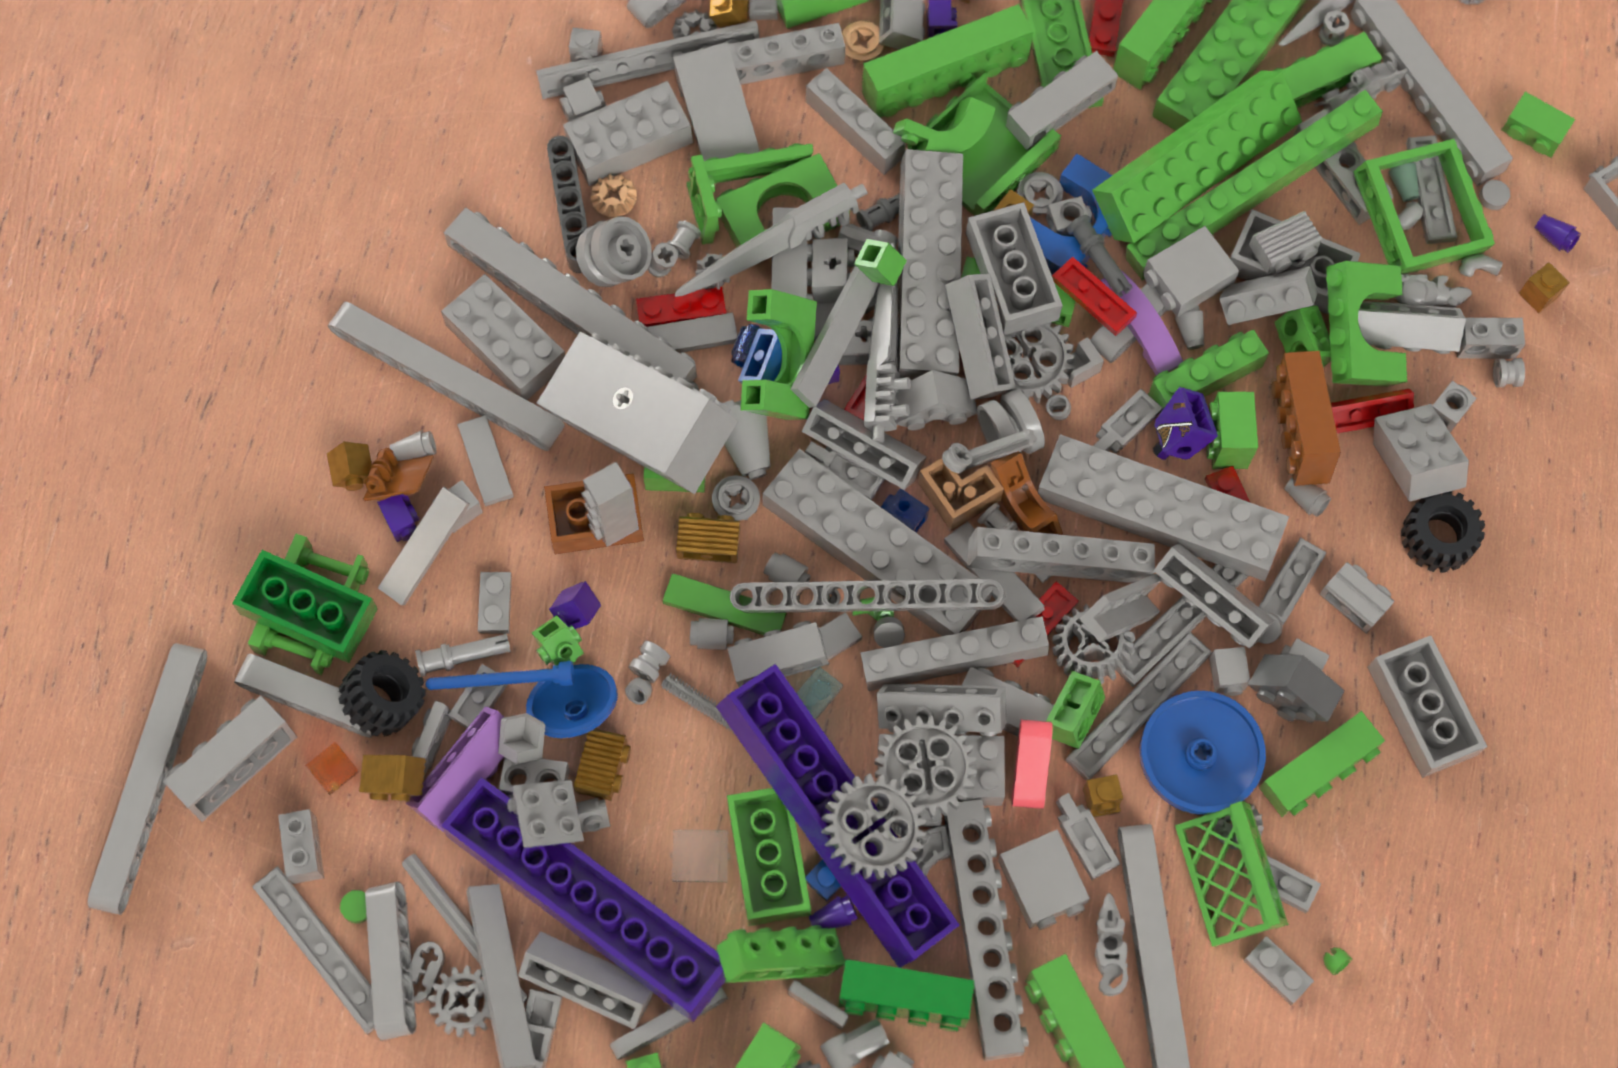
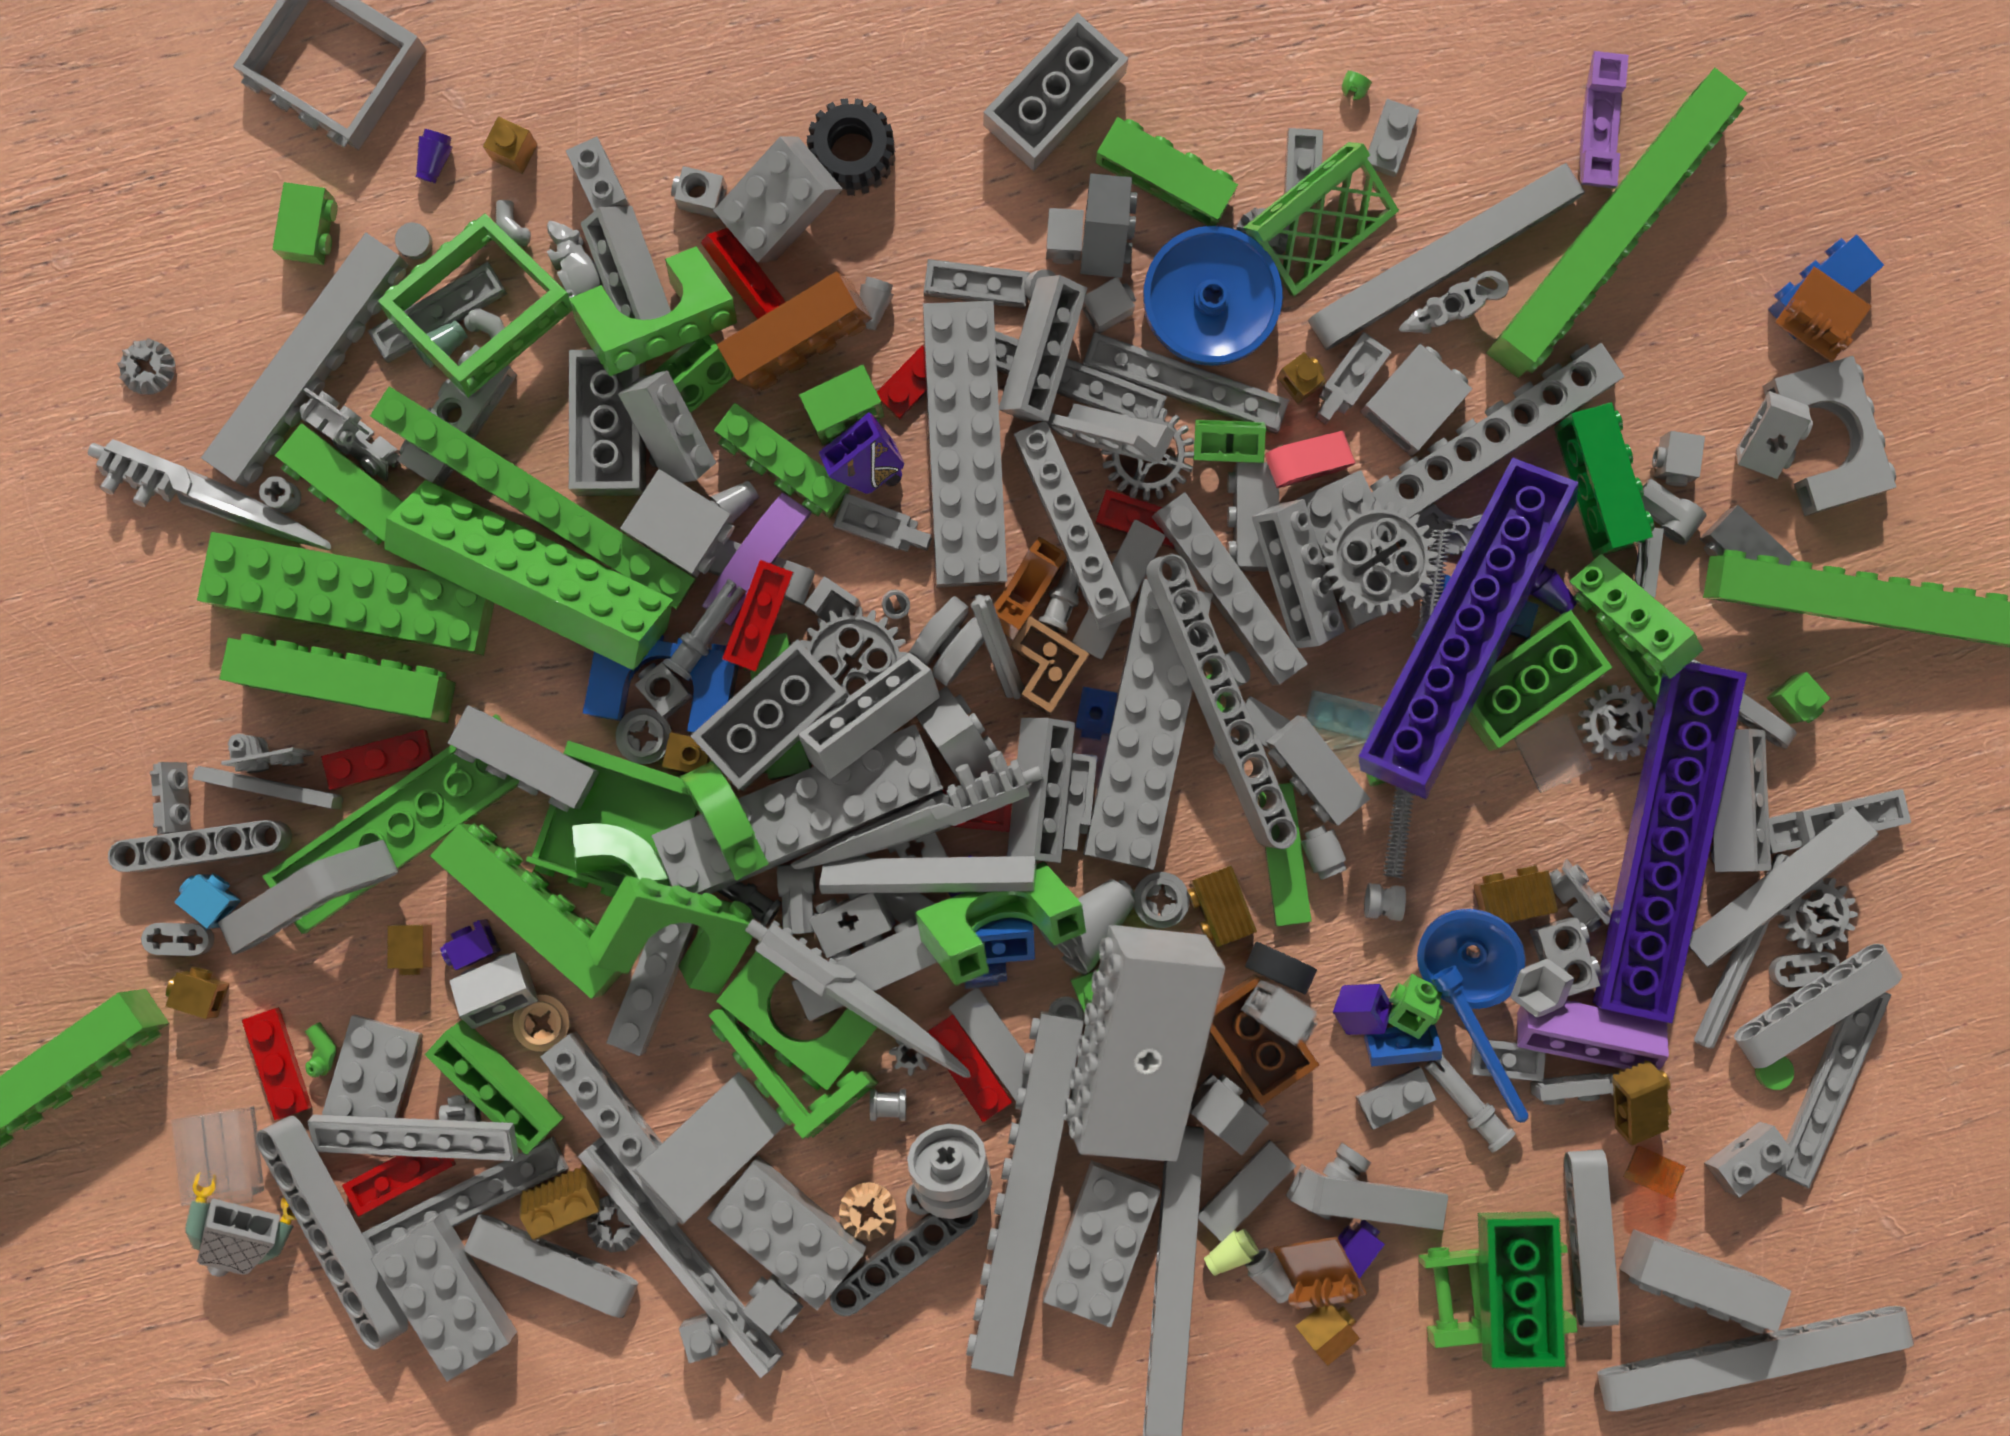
camera: 120 degrees left, 15 degrees up
(368, 707) = (1543, 1139): black tyre -> none
(445, 429) = (1232, 1252): none -> yellowish green cone
(464, 539) = (1347, 1164): none -> light grey wheel
(532, 616) = (1401, 1047): none -> blue plate
(546, 813) = (1615, 918): light grey hinge -> none
(552, 465) = (1226, 1114): none -> light grey brick
(633, 688) = (1419, 898): light grey hinge -> none
(639, 555) = (1281, 968): none -> black tyre
(666, 254) = (926, 1104): light grey bush -> none
(713, 906) = (1627, 712): none -> light grey gear
(786, 569) = (1219, 805): light grey brick -> none
(857, 803) = (1489, 550): light grey gear -> none
(880, 262) = (836, 863): bright green brick -> none
(911, 117) = (646, 907): none -> bright green arch
(948, 198) = (725, 819): none -> bright green arch
(957, 457) = (1023, 687): light grey bush -> none
(1286, 243) = (600, 431): light grey brick -> none
(1357, 596) = (964, 208): light grey brick -> none
(1509, 372) = (630, 146): light grey wheel -> none

